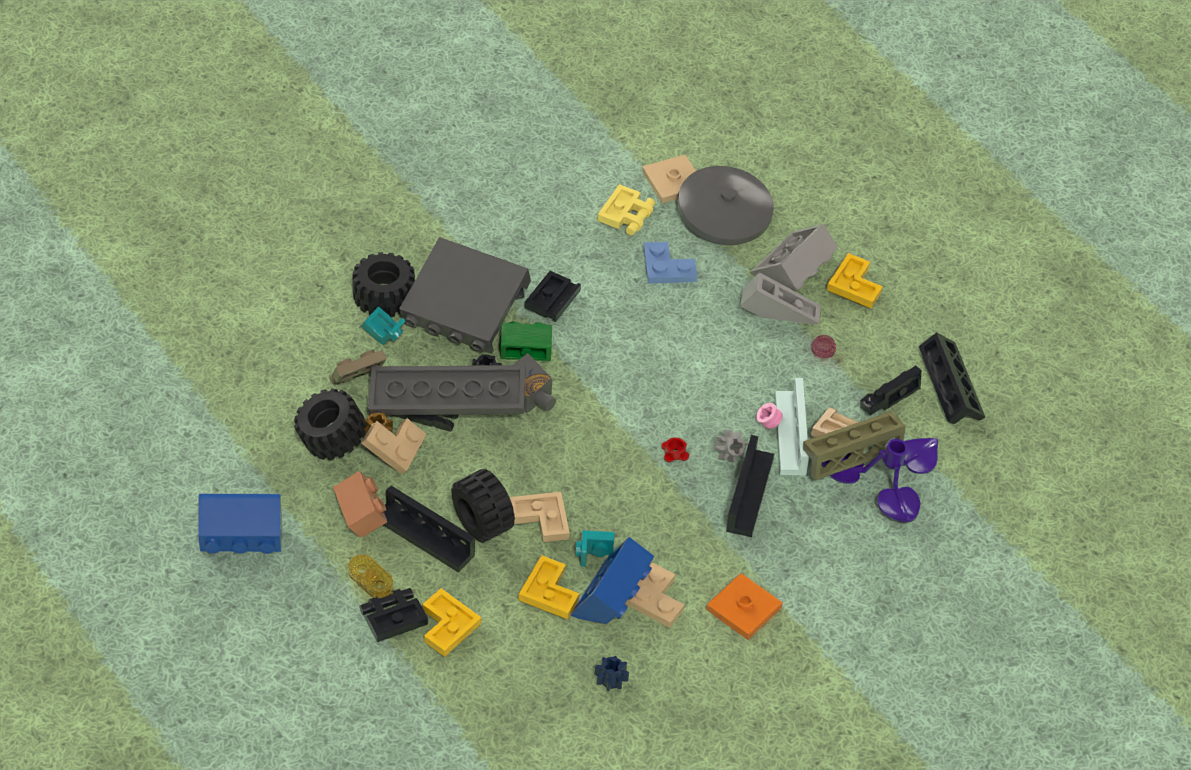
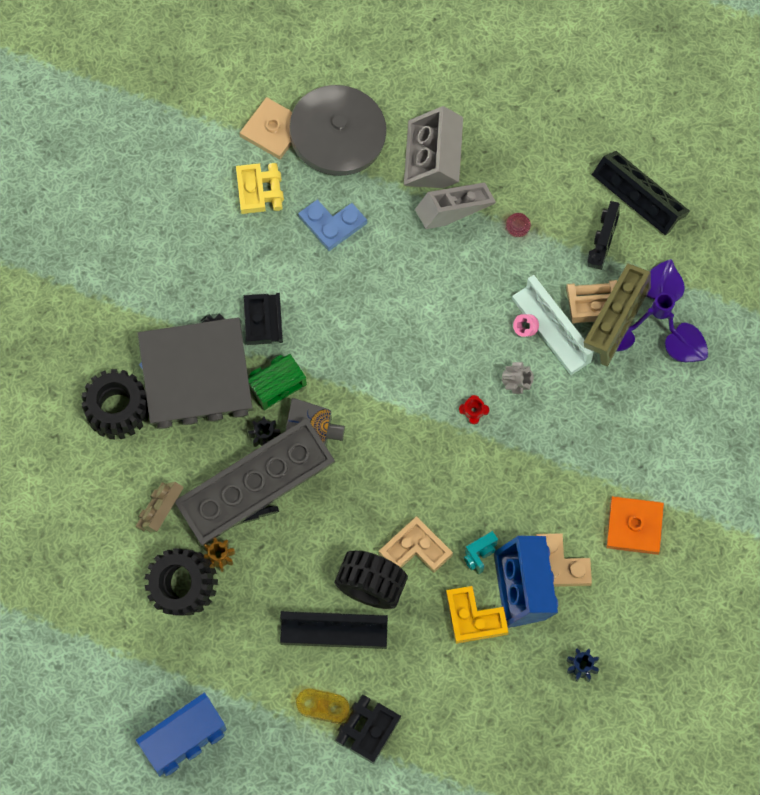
camera: 30 degrees left, 20 degrees up
(360, 504) = (264, 643): nougat brick -> none
(382, 326) = (145, 446): teal bracket -> none
(395, 449) = (252, 563): tan plate -> none
(454, 621) = (421, 698): yellow plate -> none
(749, 490) = (561, 409): black fence -> none
(850, 284) = (493, 146): yellow plate -> none

